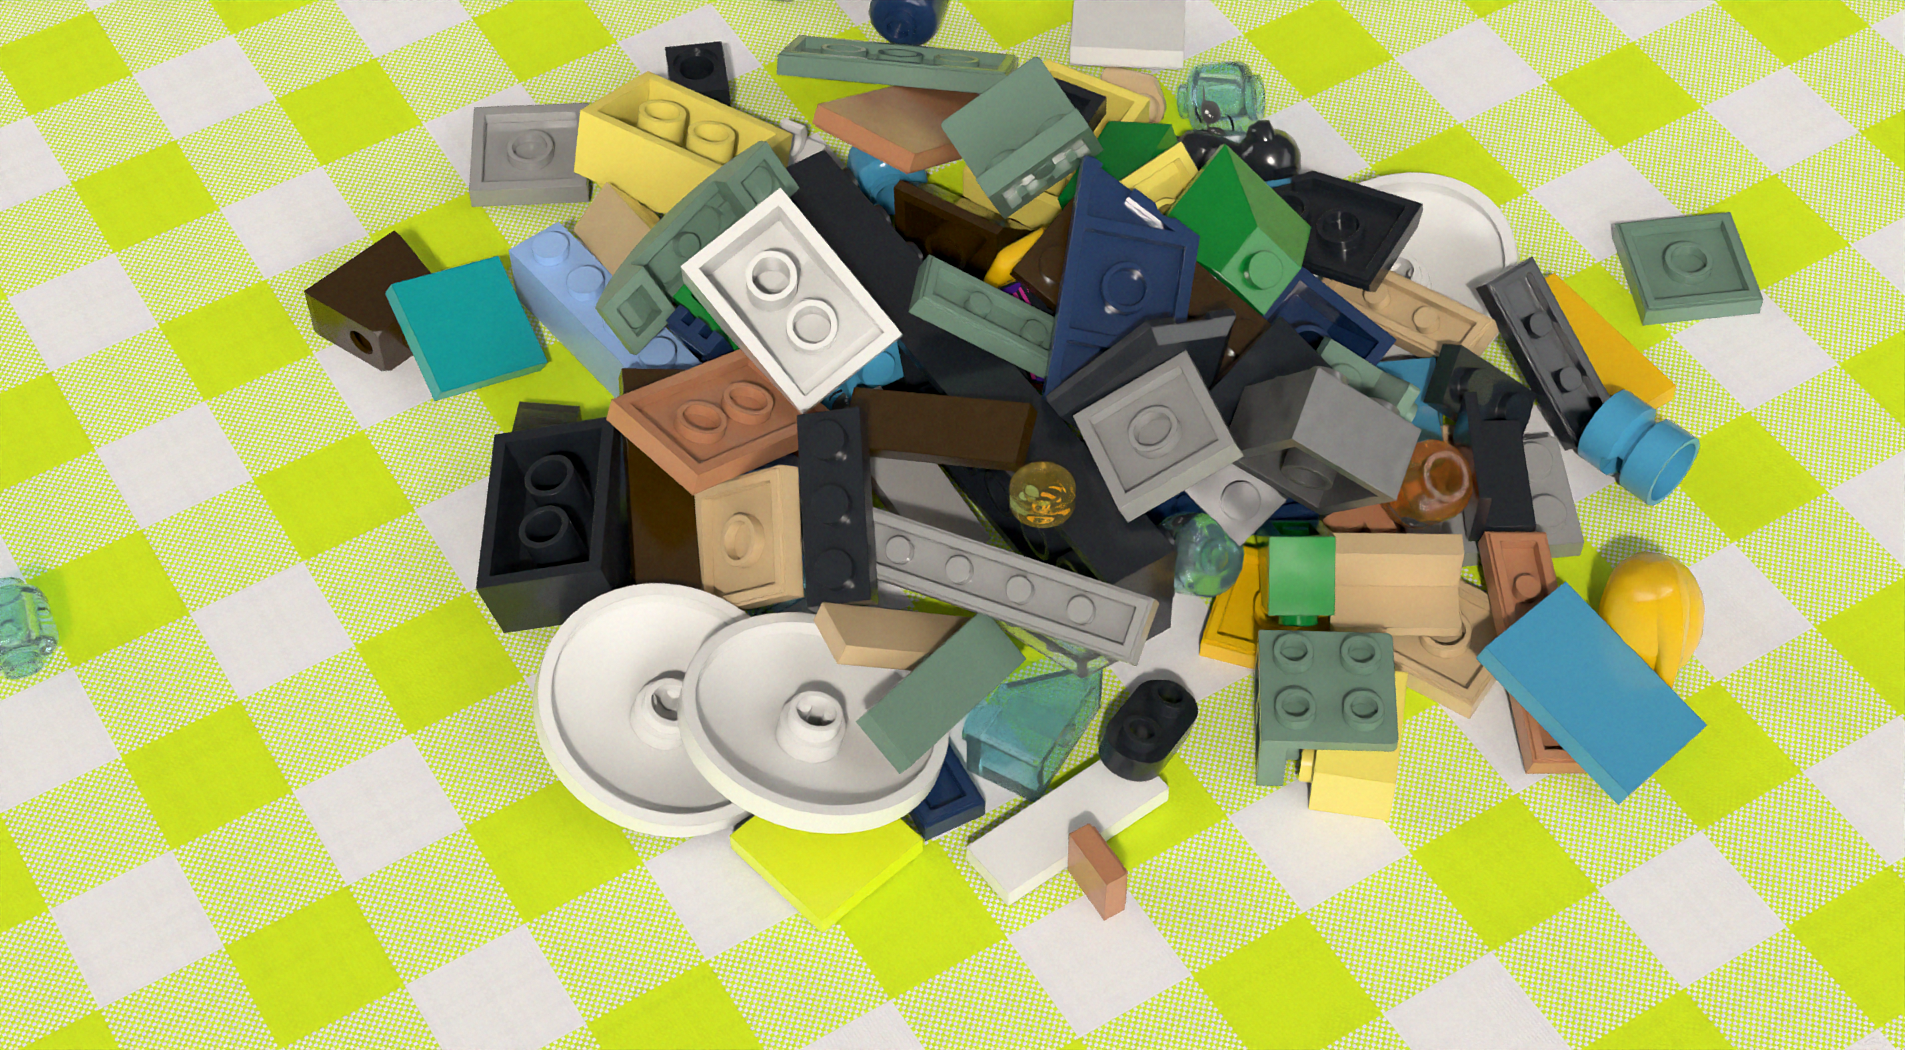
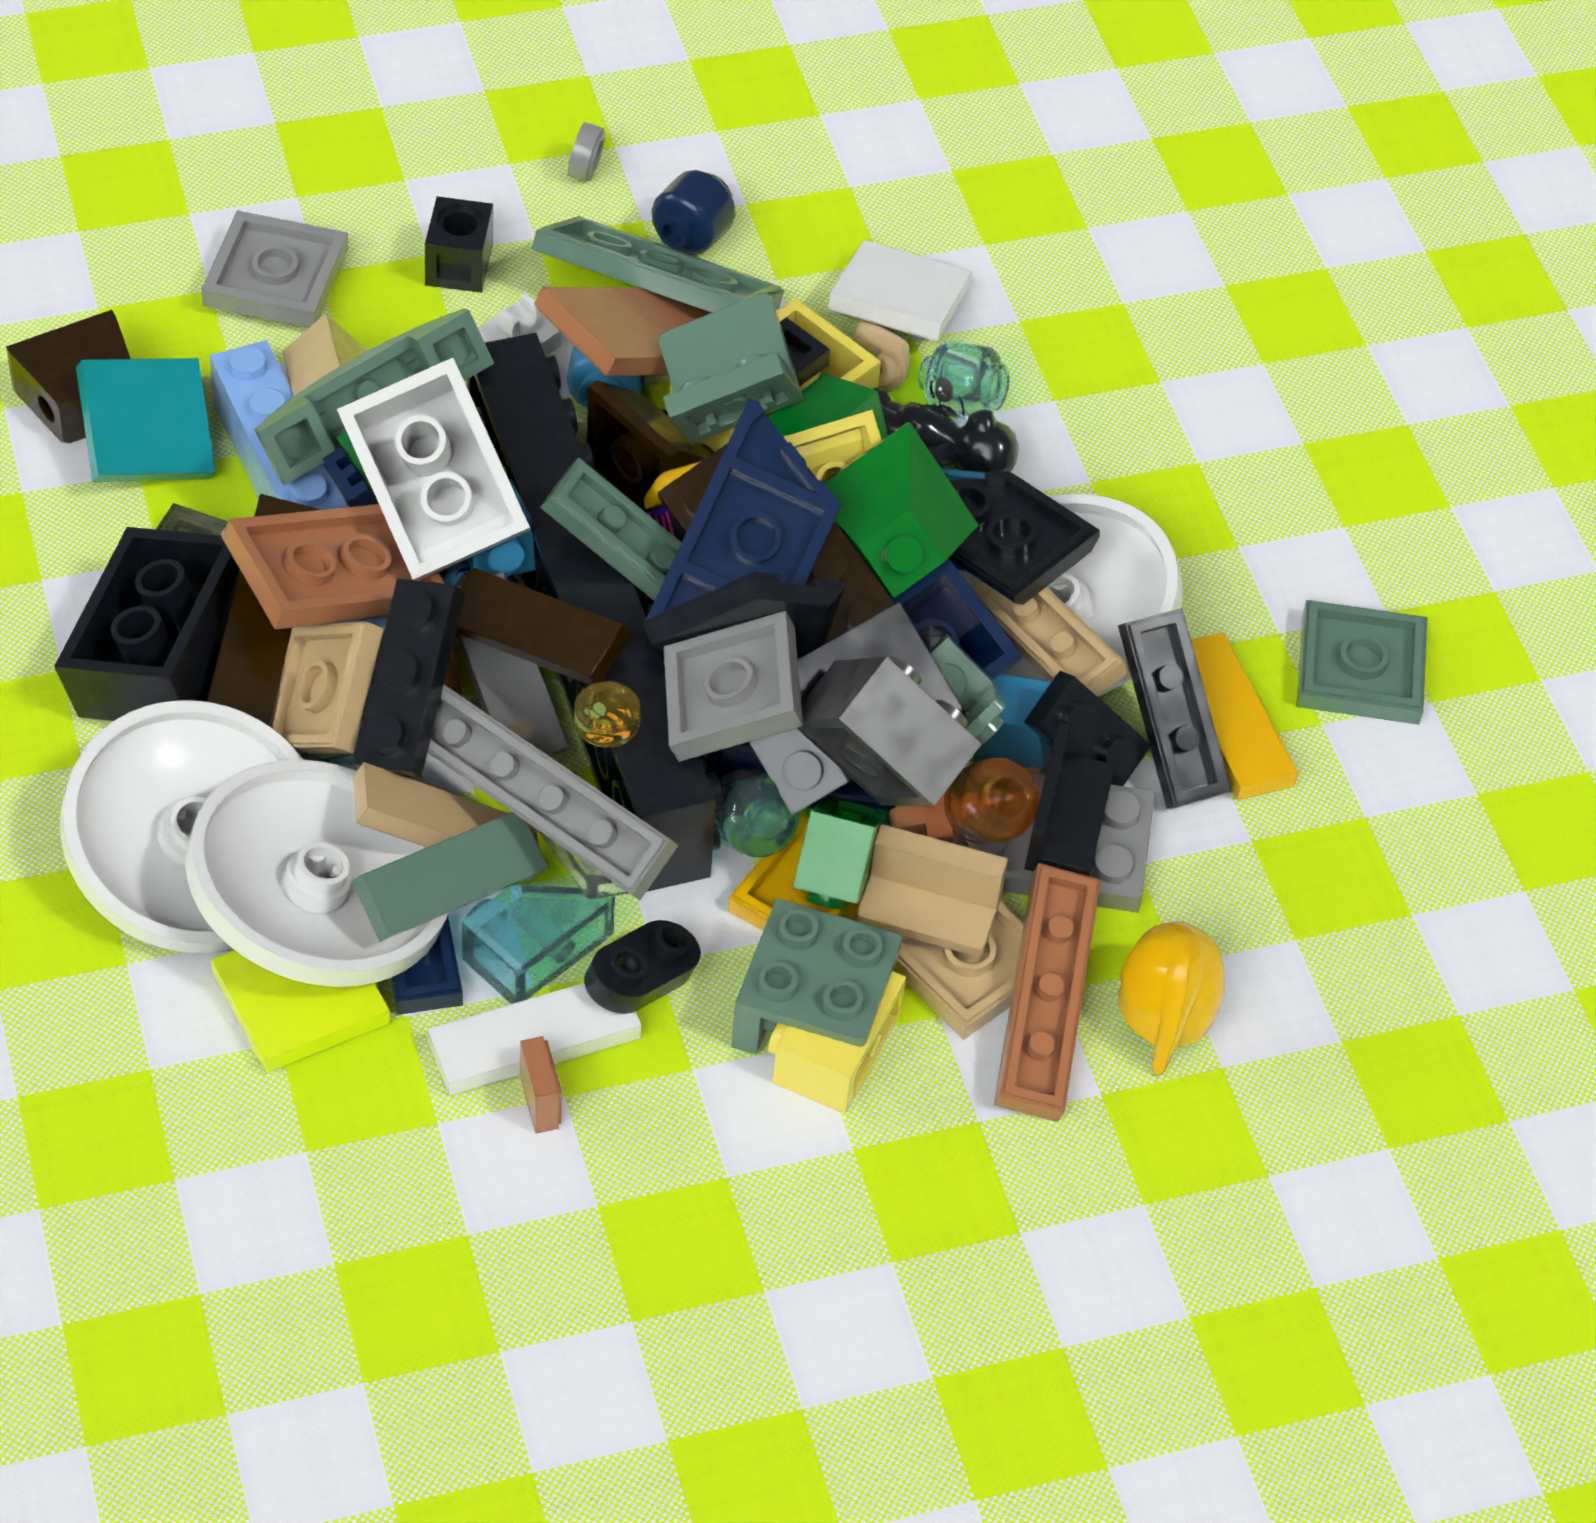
camera: 10 degrees right, 0 degrees up
(664, 140) = (397, 278): light yellow brick -> none
(1591, 692) = (1081, 1043): dark azure tile -> none
(1644, 452) = (1234, 830): dark azure wheel -> none

